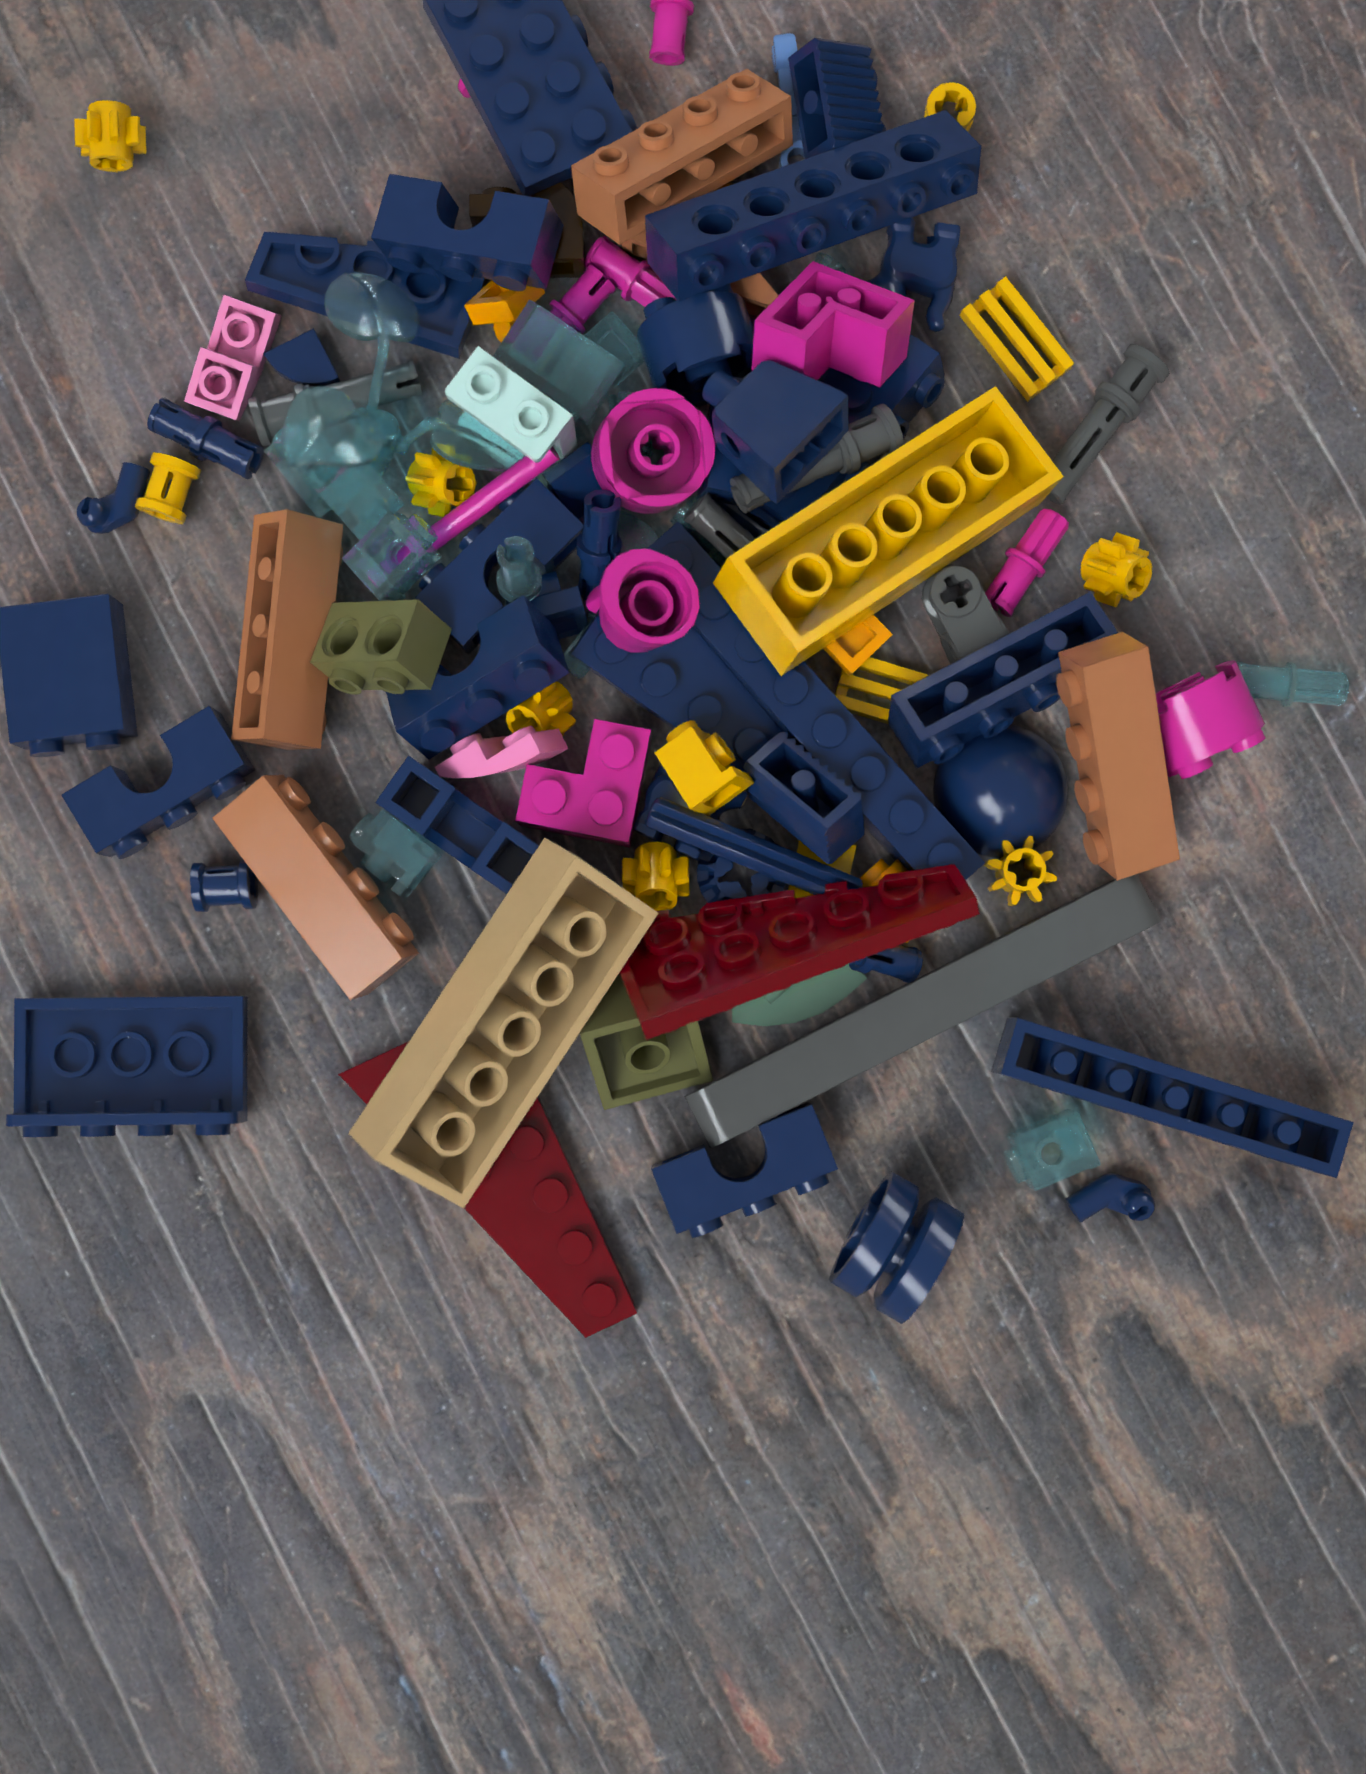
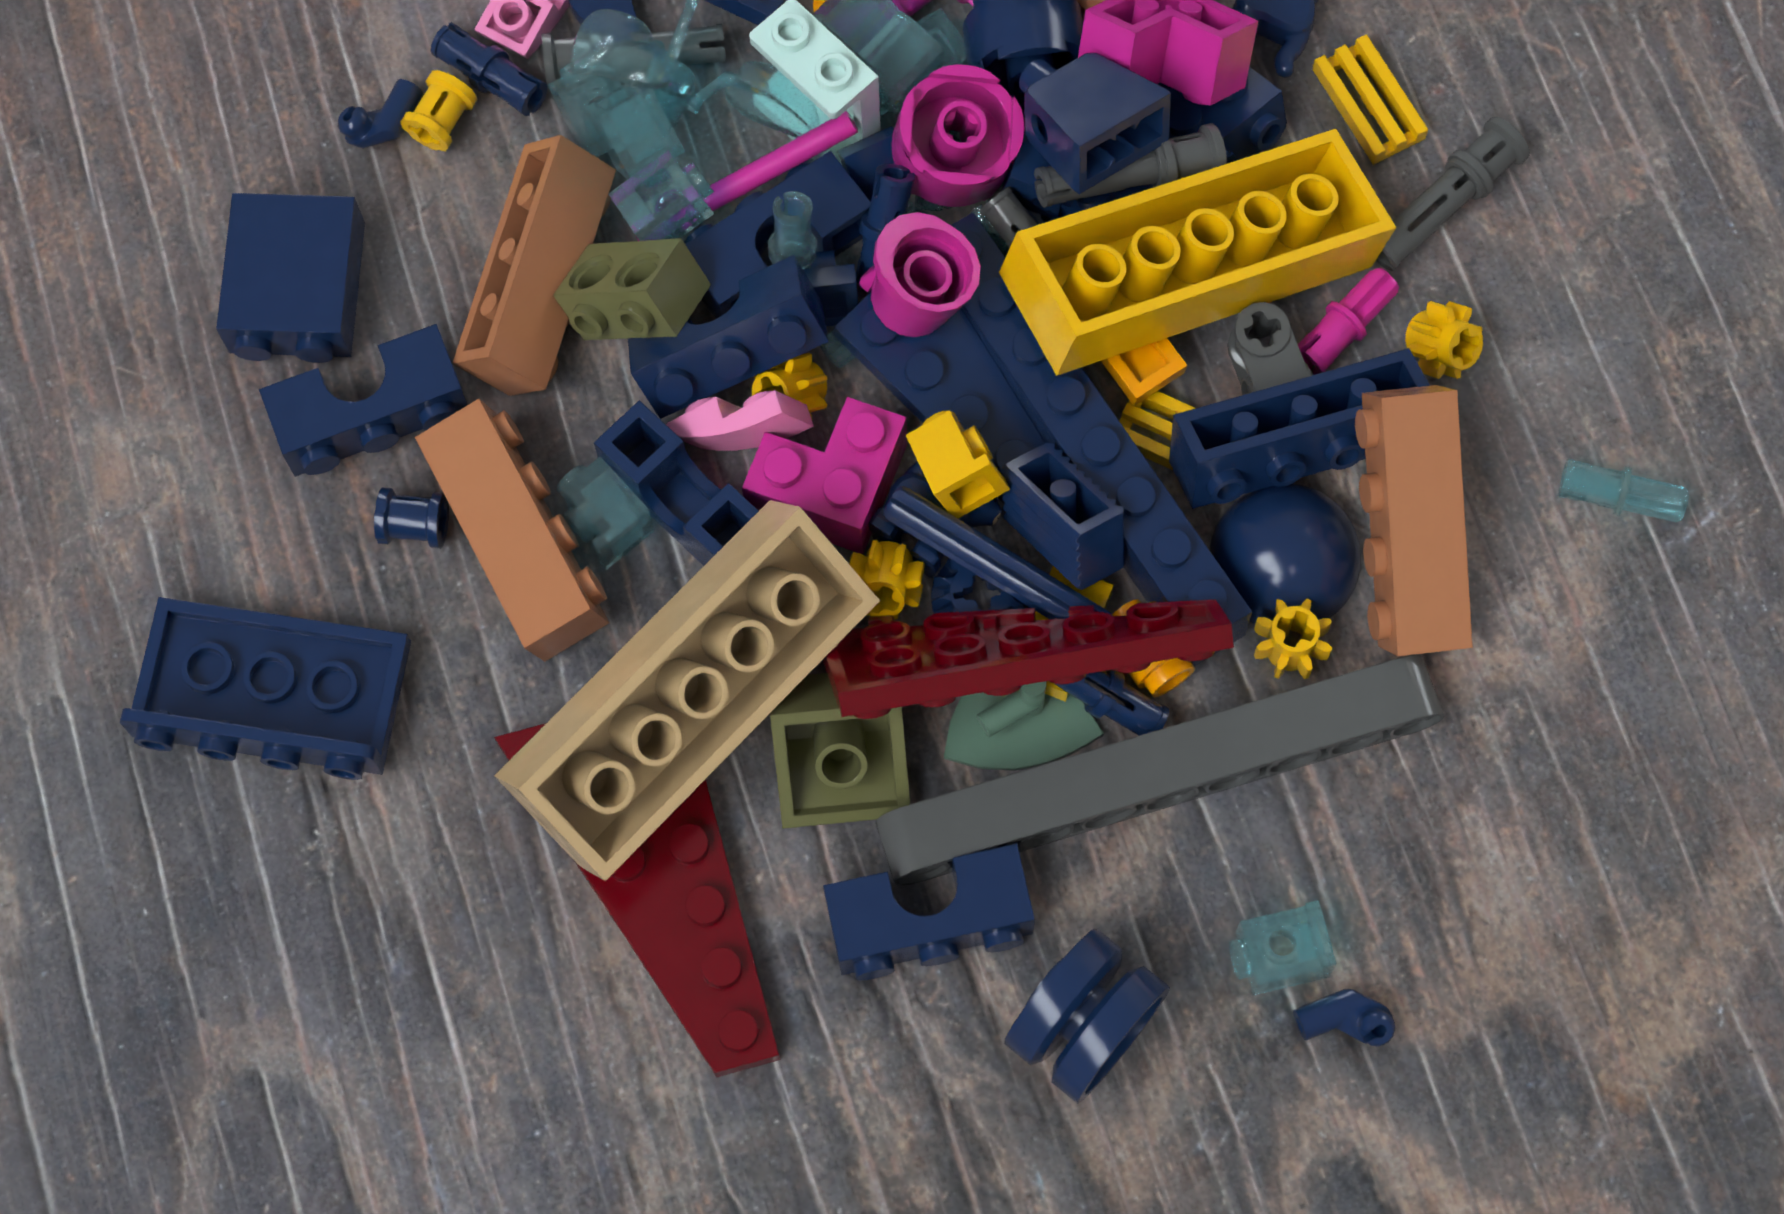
camera: 15 degrees right, 15 degrees down
(439, 483) = (727, 142): yellow gear -> none
(1172, 1097) = (1429, 905): dark blue brick -> none
(1207, 718) = (1519, 500): dark pink brick -> none

